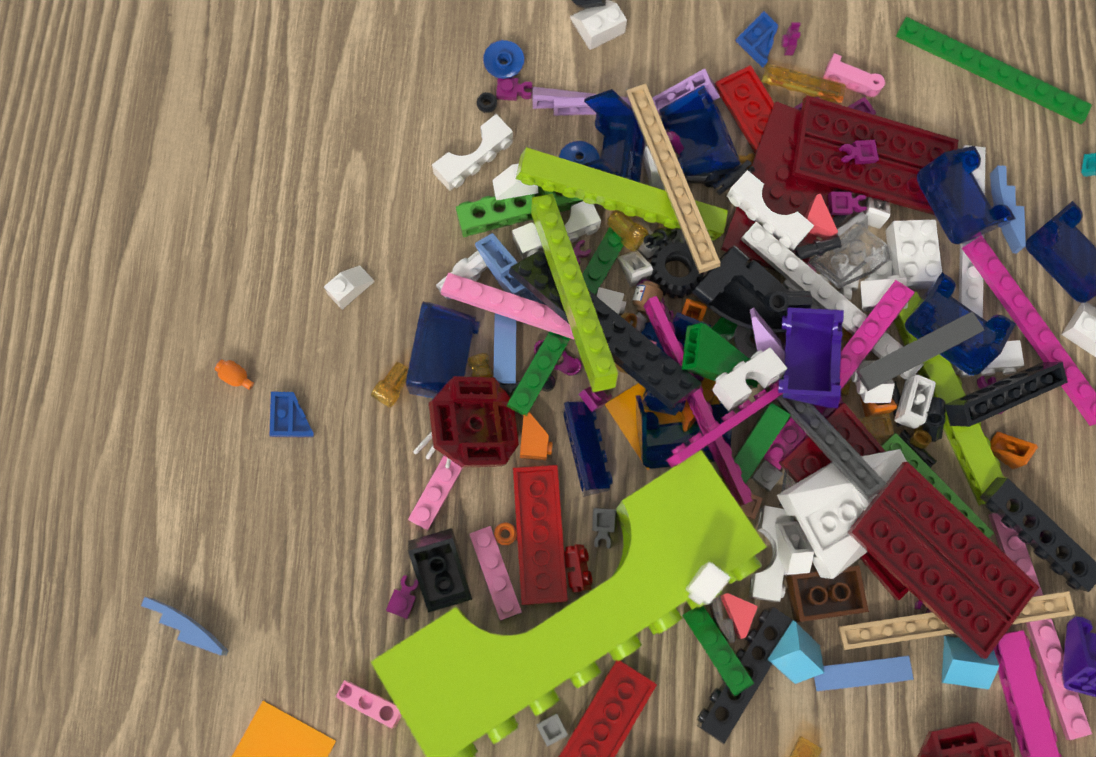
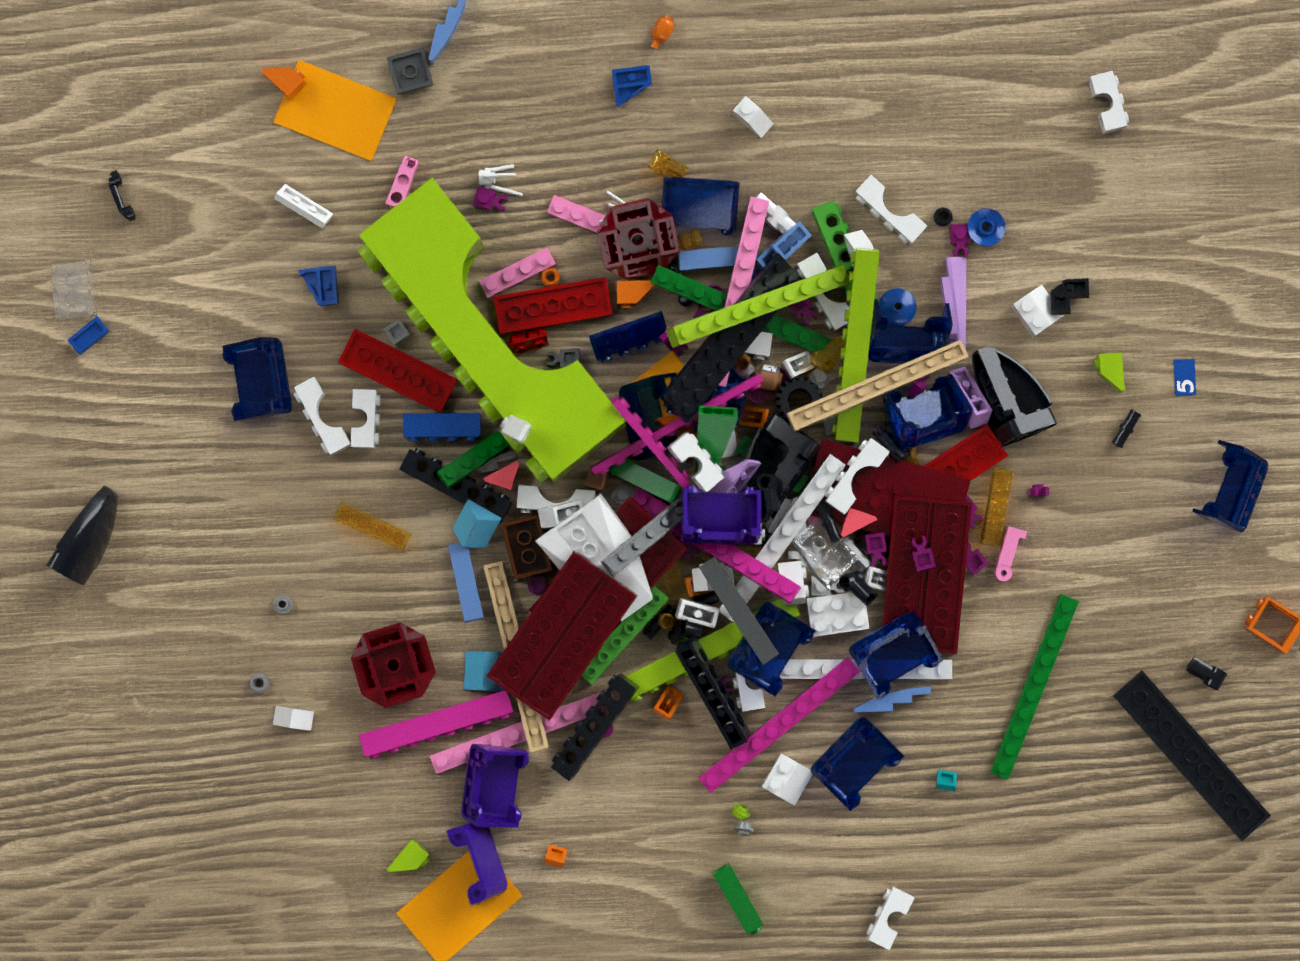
camera: 85 degrees right, 10 degrees up
(231, 680) = (410, 71): none -> dark grey plate
(375, 596) = (488, 176): none -> white plant
(439, 570) = (515, 226): black slope -> none
(660, 237) = (825, 383): black pin -> none
(673, 684) = (442, 426): none -> blue brick
(689, 49) = (1014, 394): none -> black panel
(758, 38) = (1038, 462): blue wing -> none
(871, 586) = (537, 585): none -> magenta plate
(887, 227) = (856, 584): none -> black piece

